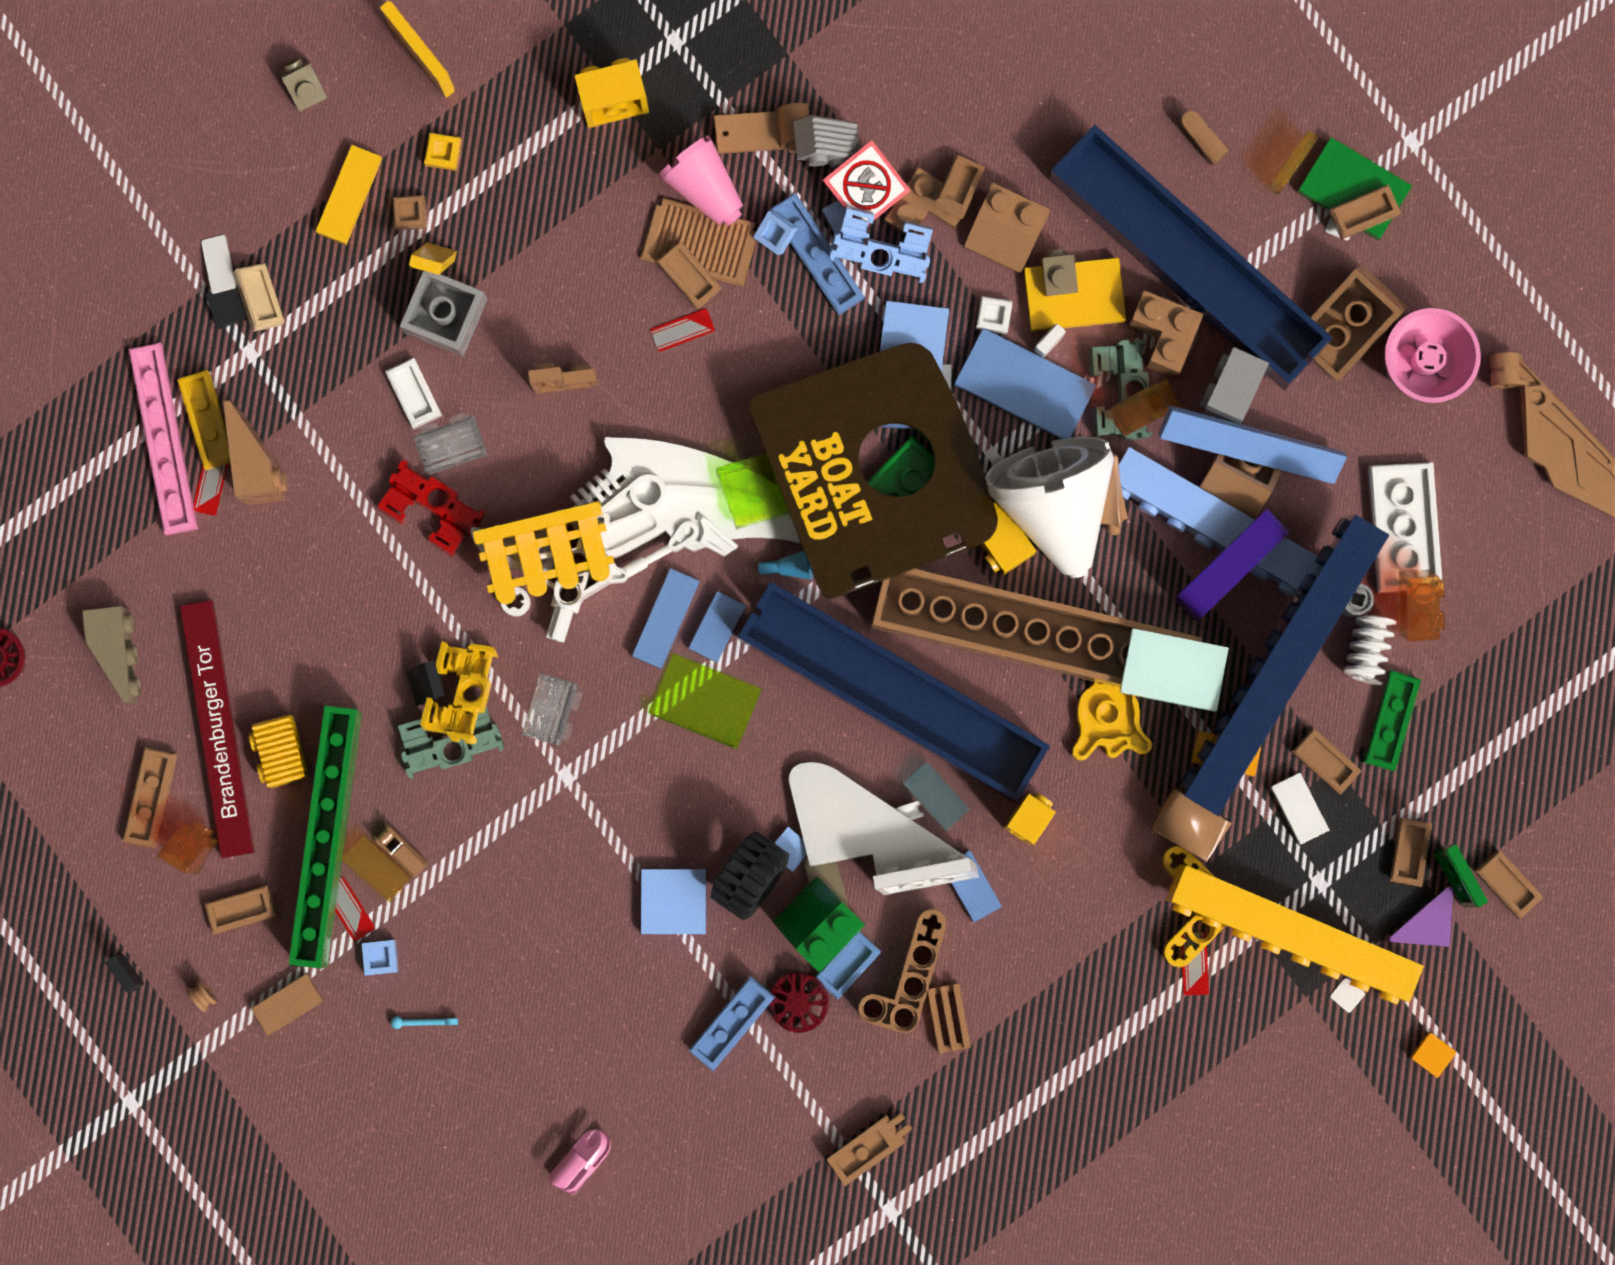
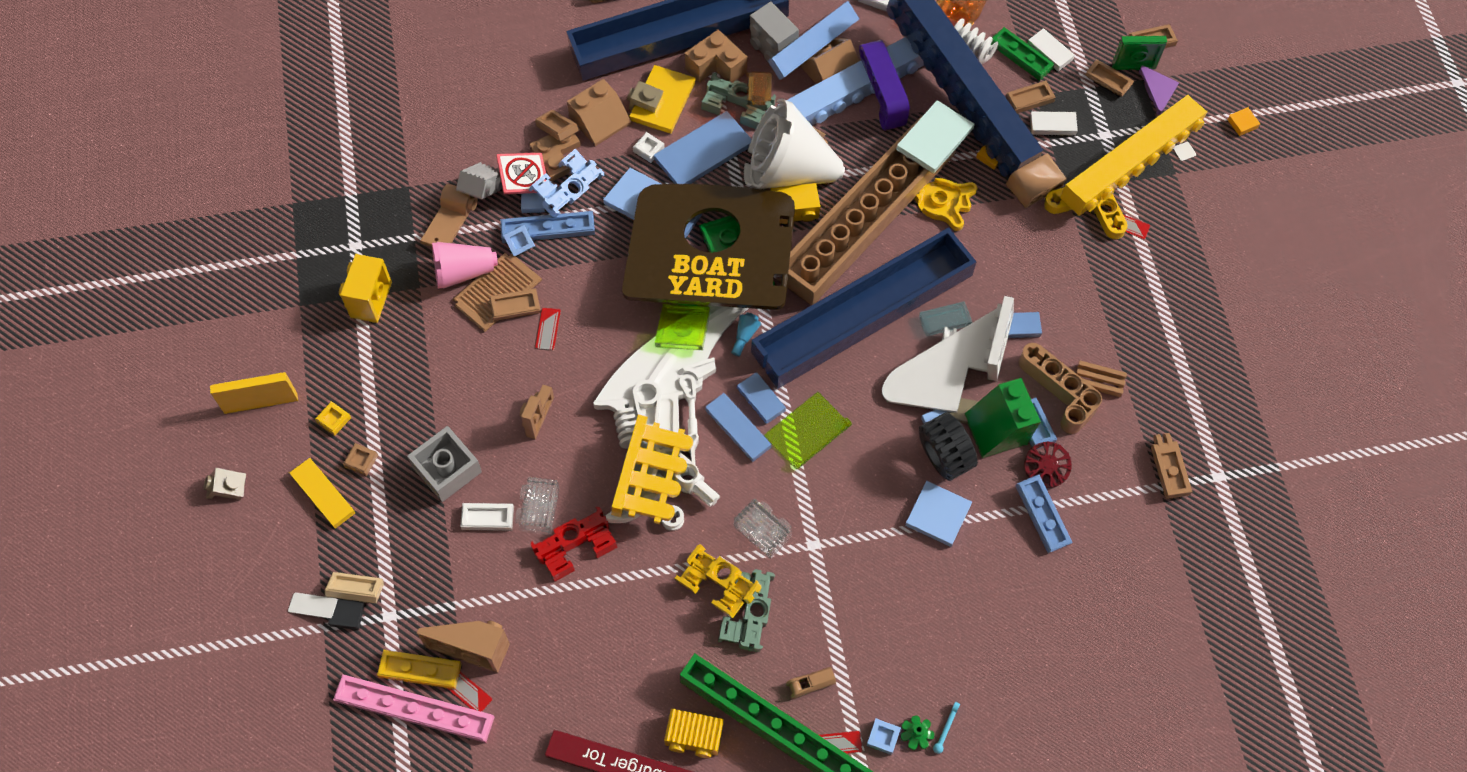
camera: 65 degrees left, 20 degrees down
(376, 868) = (817, 706): clear yellow tile -> none
(409, 992) = (917, 733): none -> green plant
(425, 682) = (698, 603): black piece -> none
(432, 258) = (403, 451): yellow tile -> none
(581, 1161) = (1101, 661): bright pink arm -> none
(1030, 818) = (991, 264): yellow brick -> none
(1049, 341) = (684, 121): white tile -> none
(1418, 756) = (1051, 49): none -> white tile

